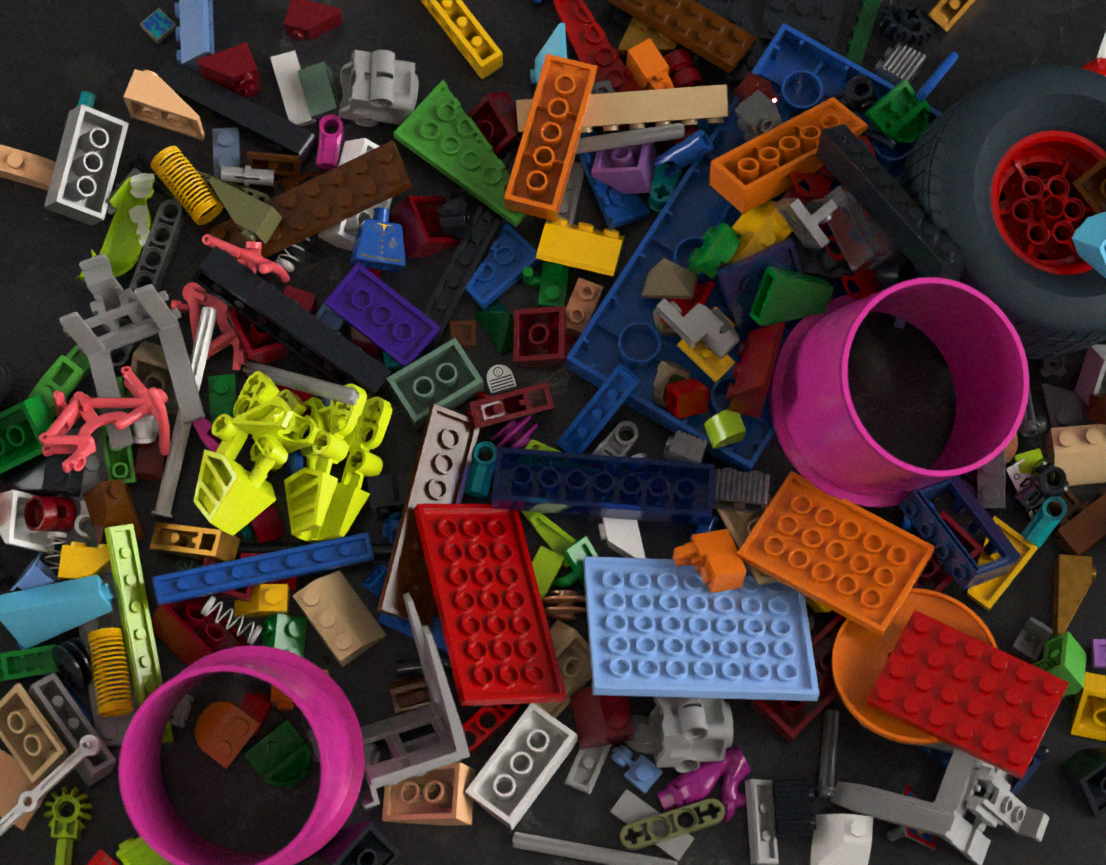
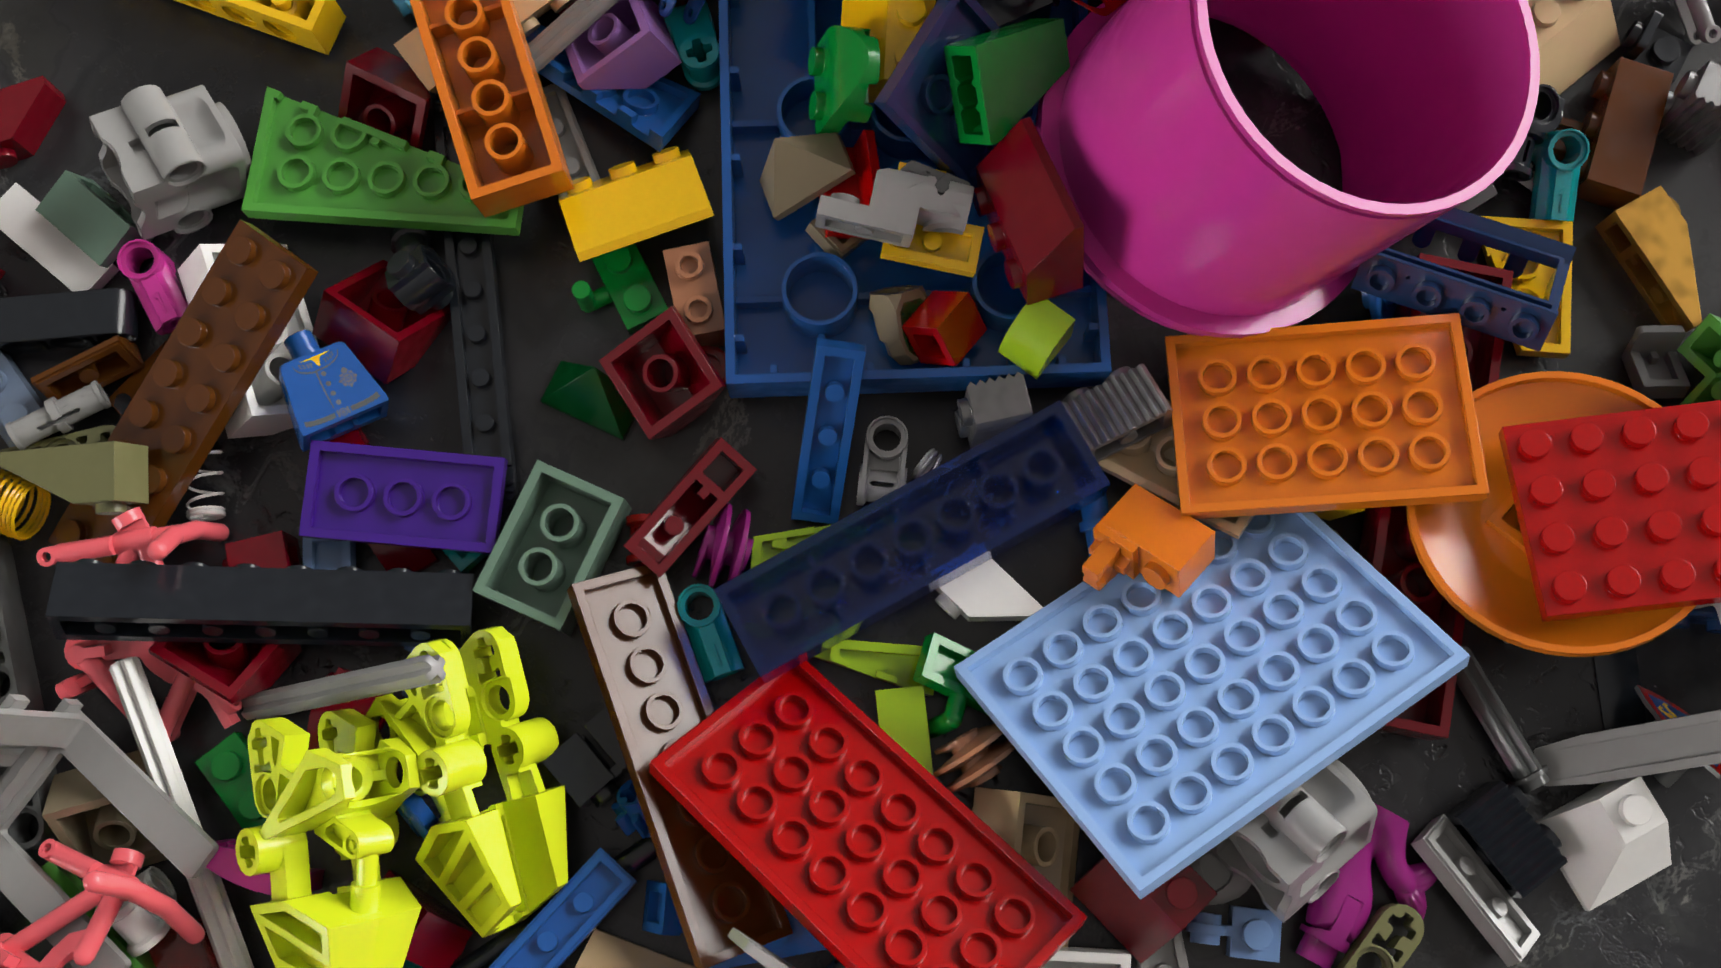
camera: 30 degrees left, 5 degrees up
(464, 333) = (545, 442): reddish brown tile -> none
(500, 379) = (645, 476): white tile -> none
(501, 267) = (537, 309): blue wing -> none

